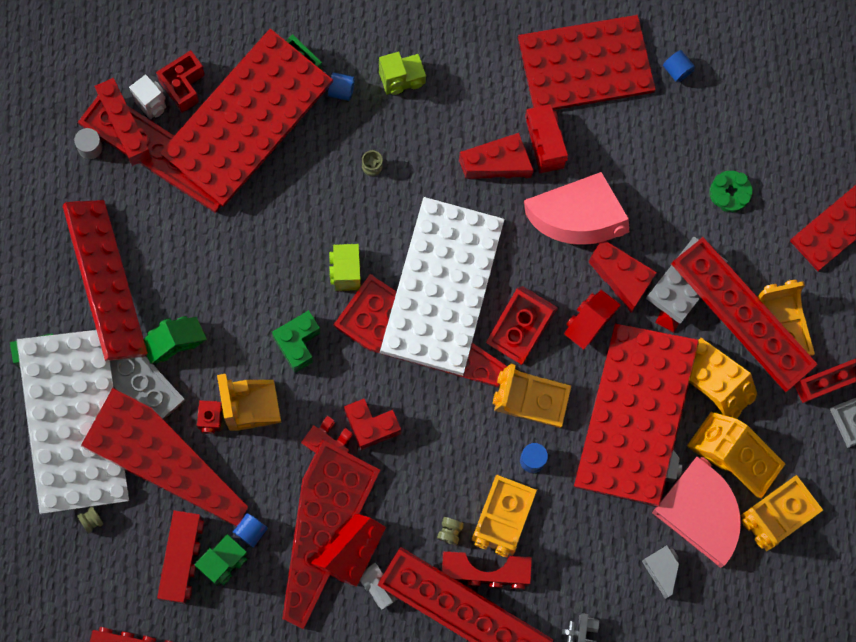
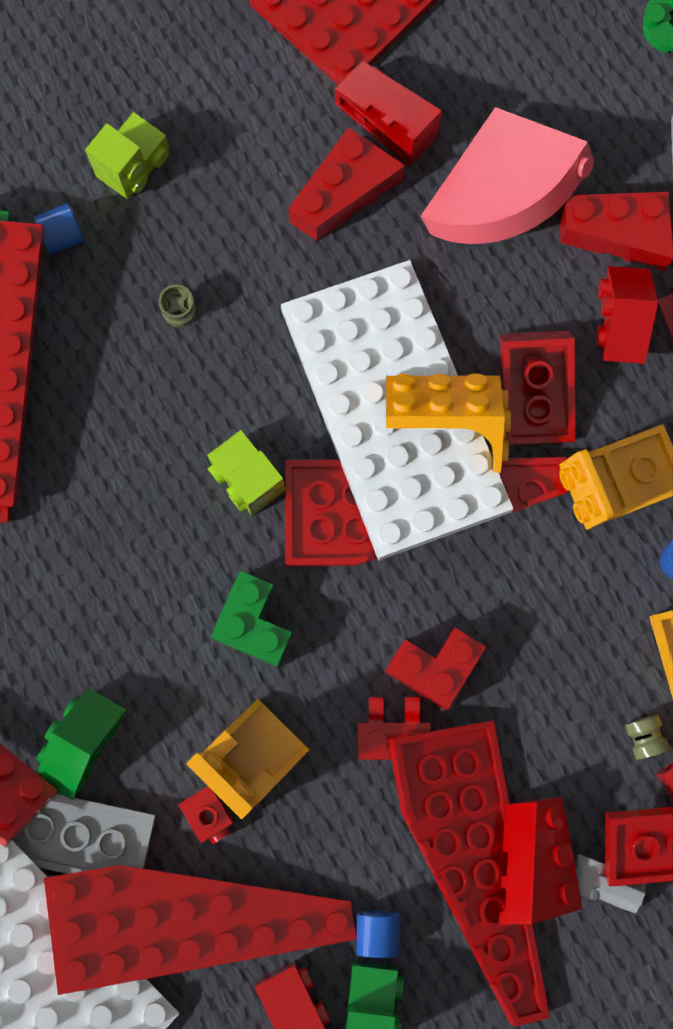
camera: 30 degrees left, 5 degrees up
(473, 302) = (452, 403): none -> light orange bracket

